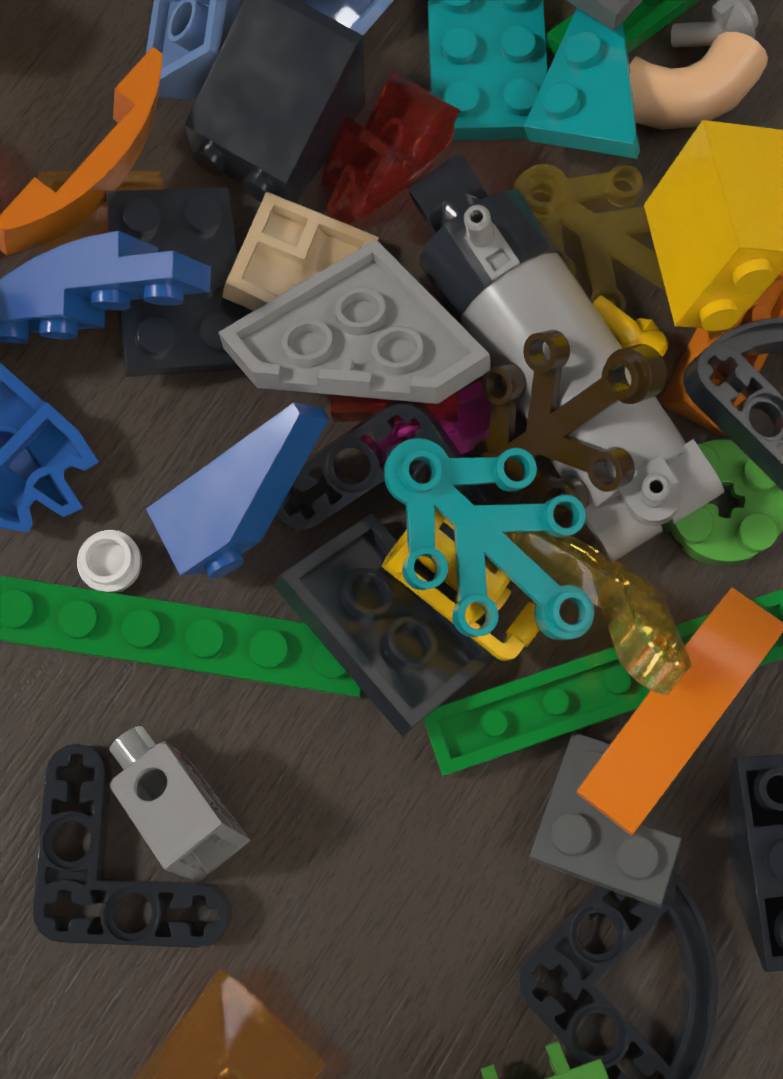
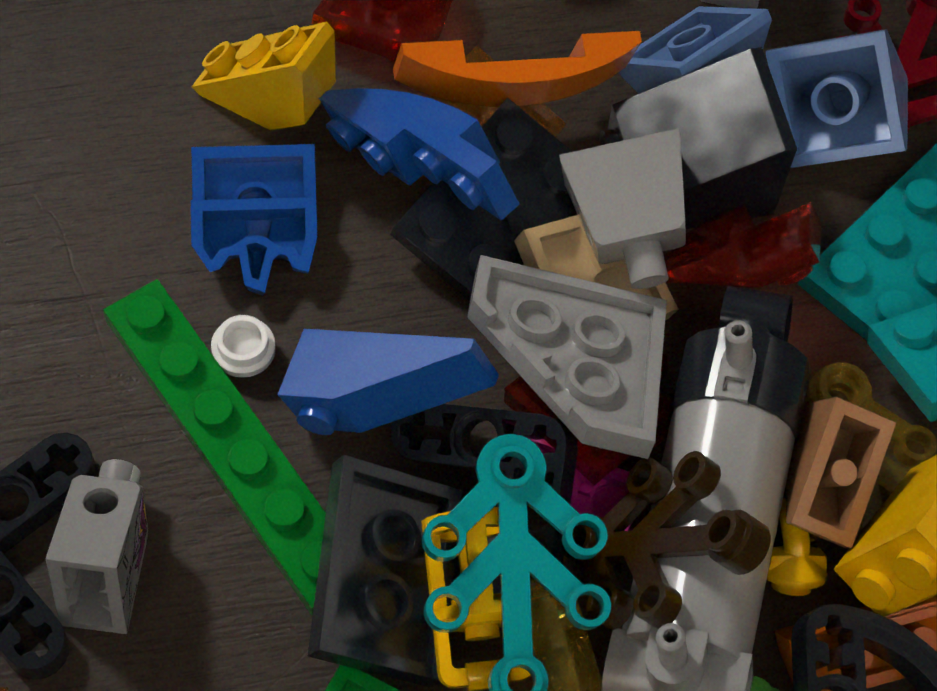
camera: 40 degrees right, 15 degrees down
(283, 187) = (630, 202): none -> light grey torso
(610, 253) = (835, 468): none -> medium nougat slope

